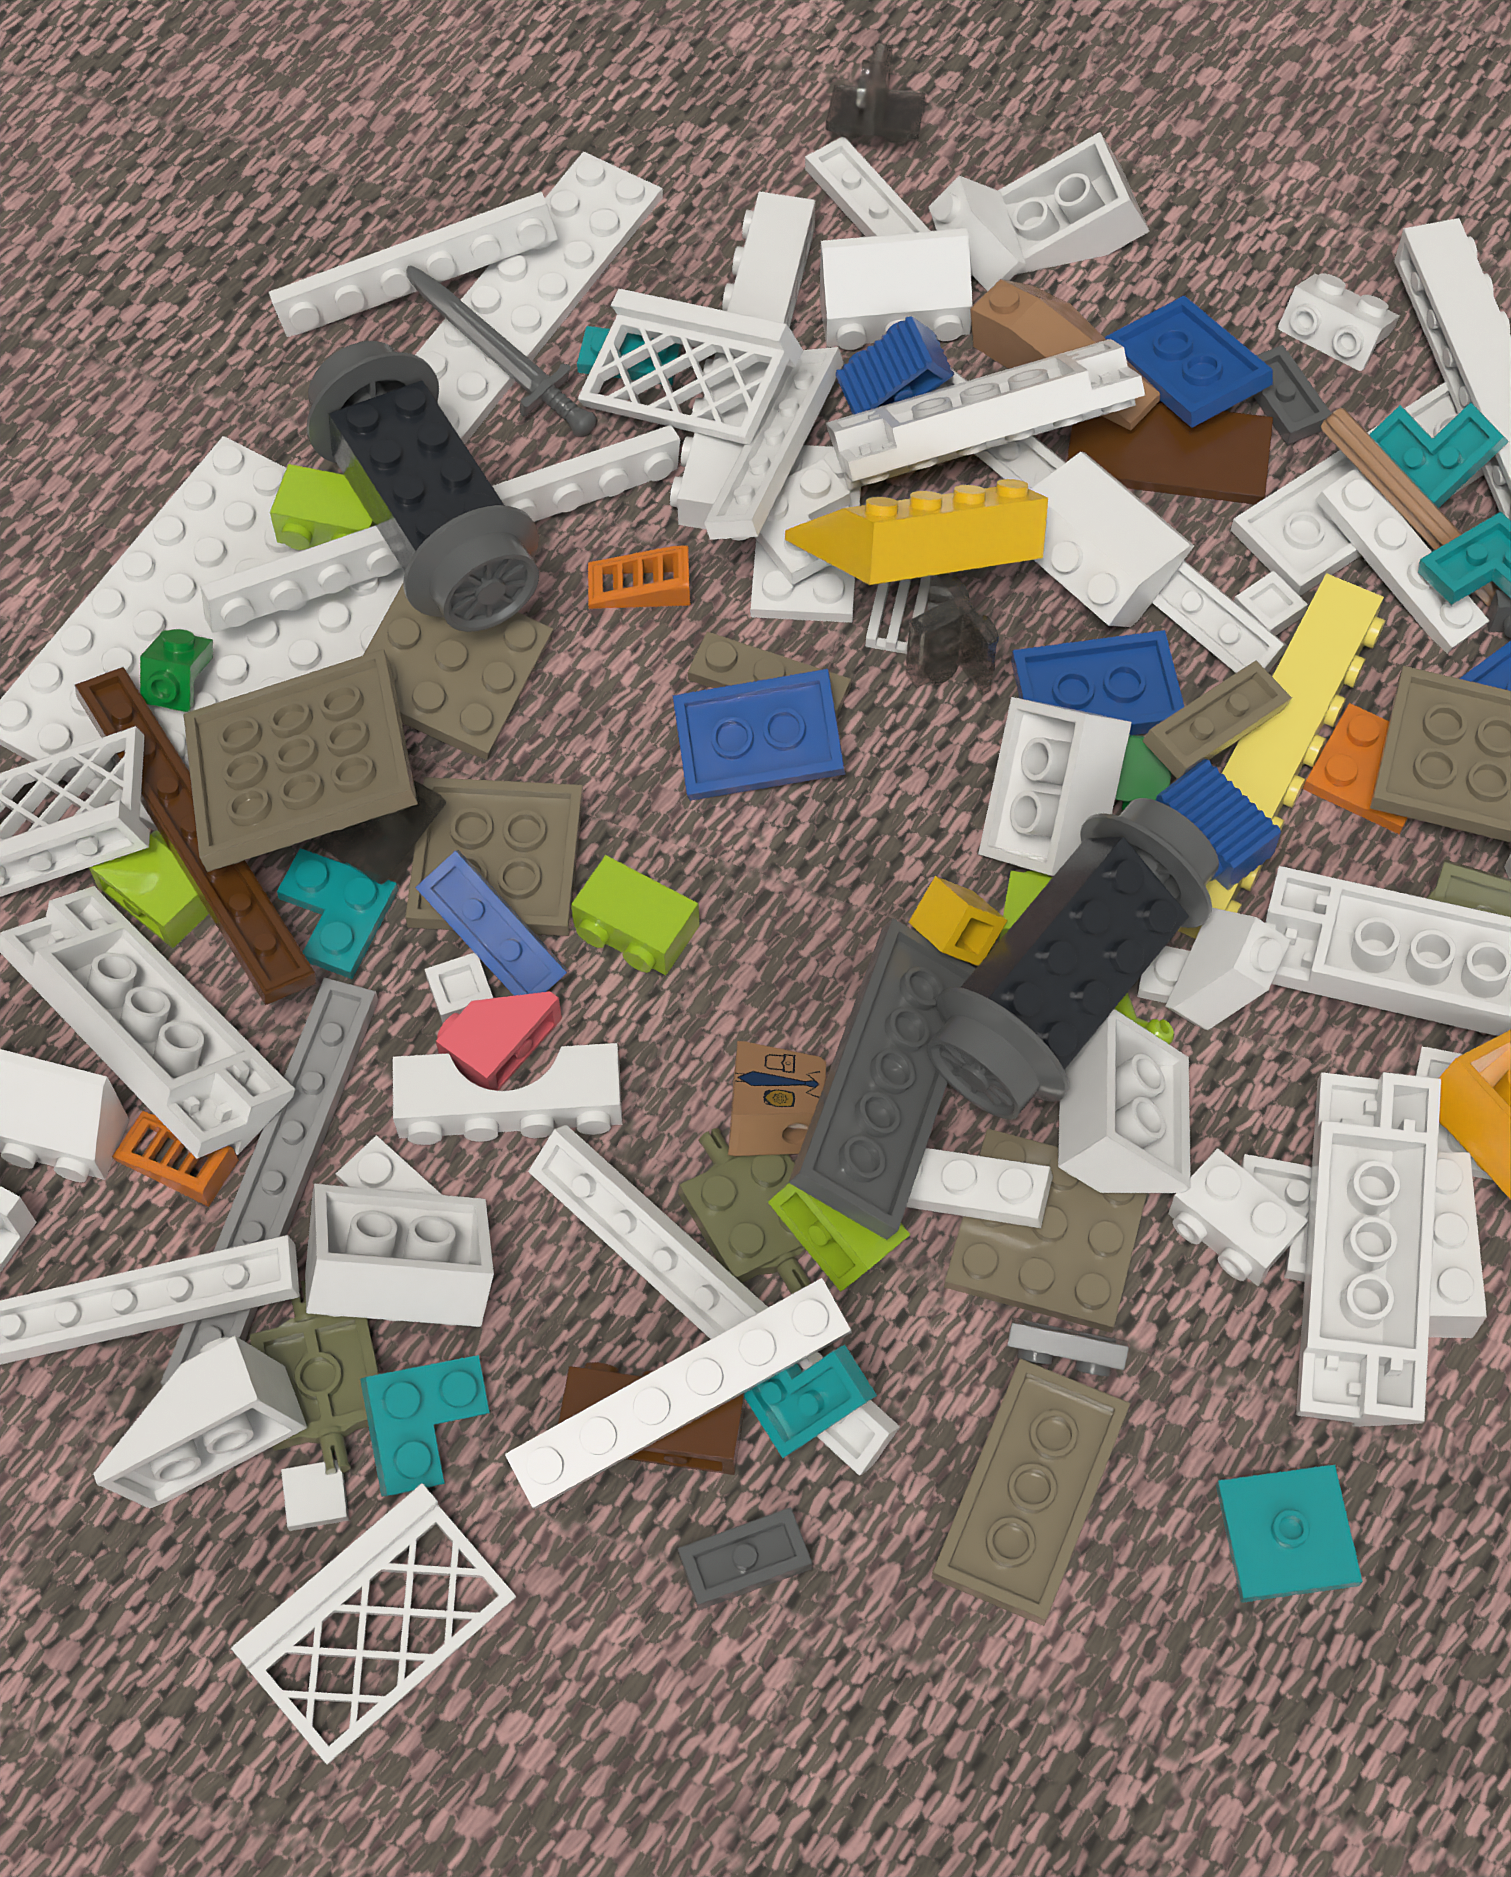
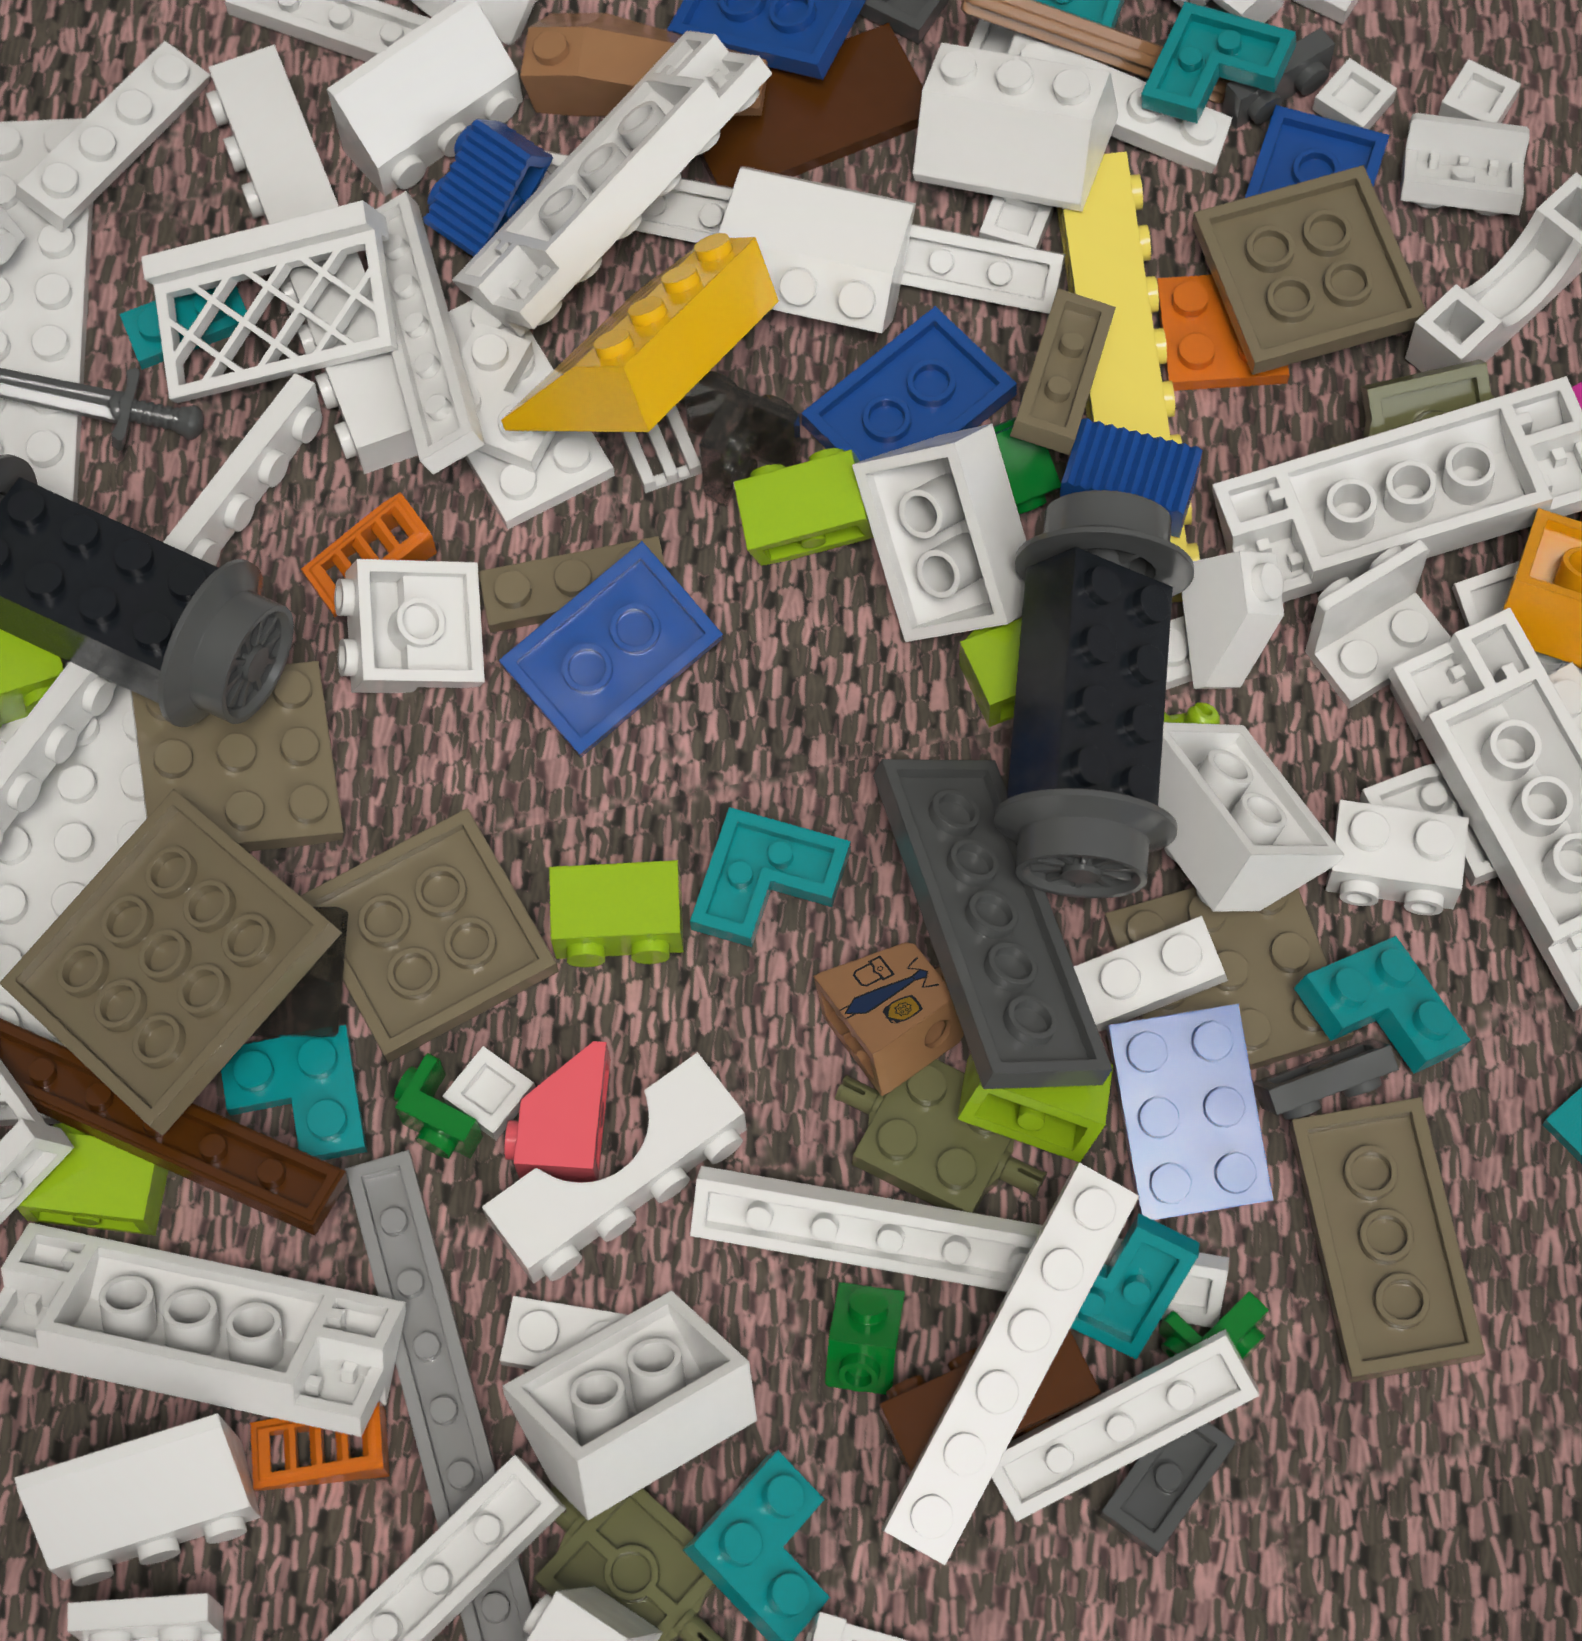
camera: 30 degrees left, 5 degrees up
(403, 965) = (438, 1125): none -> green bracket
(491, 927) = (485, 1012): plate -> none
(597, 1317) = (864, 1338): none -> green bracket
(631, 639) = (410, 625): none -> white plate
(663, 205) = (112, 136): none -> white plate
(734, 1494) = (1123, 1424): none -> white plate
(760, 940) = (759, 857): none -> teal plate
(862, 1485) = (1240, 1323): none -> green bracket
(946, 1306) = (1189, 1112): none -> plate
(957, 921) = (942, 724): yellow brick -> none
(960, 713) = (802, 507): none -> lime brick
(1162, 1310) = (1389, 989): none -> teal plate
(1307, 531) = (1013, 126): none -> white slope
(1336, 1034) = (1373, 624): none -> white bracket

